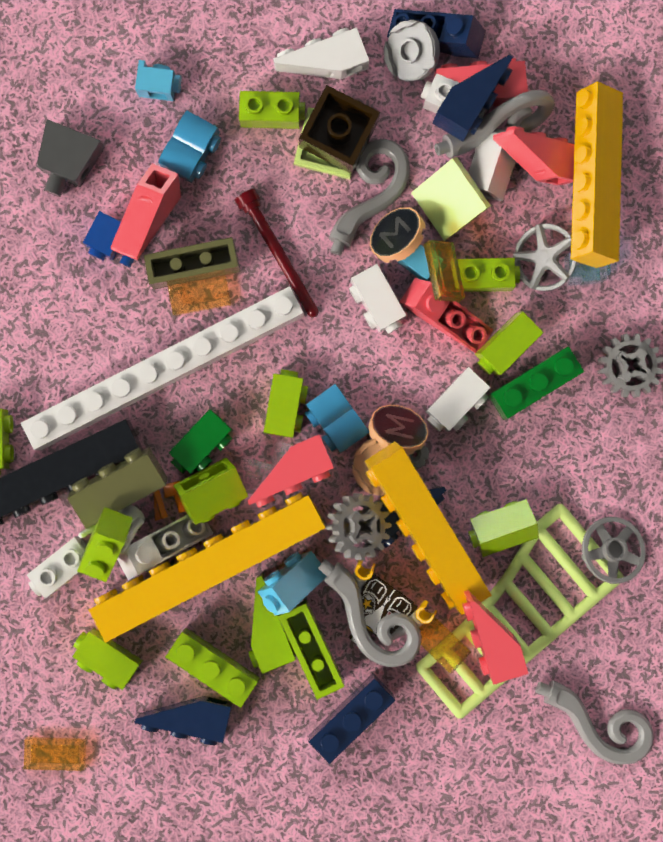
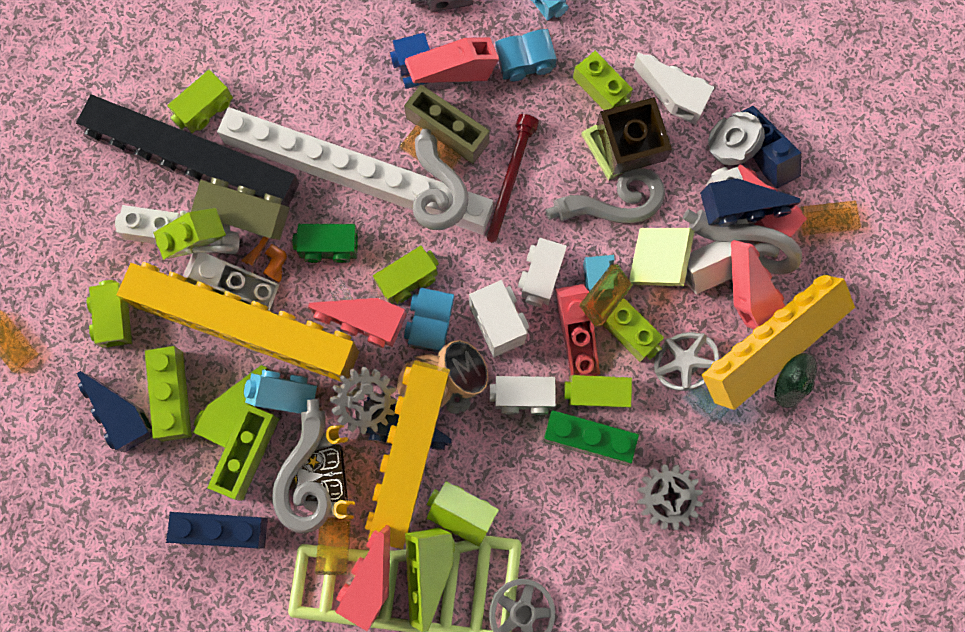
camera: 50 degrees right, 10 degrees down
(205, 302) = (427, 154): none -> light grey plant
(211, 491) = (296, 277): lime brick -> none
(386, 368) = (498, 318): none -> white brick
(397, 235) = (600, 243): tile -> none
(525, 592) = (428, 568): none -> lime slope
(537, 39) = (830, 218): none -> clear yellow tile
(635, 190) = (796, 380): none -> clear green dish

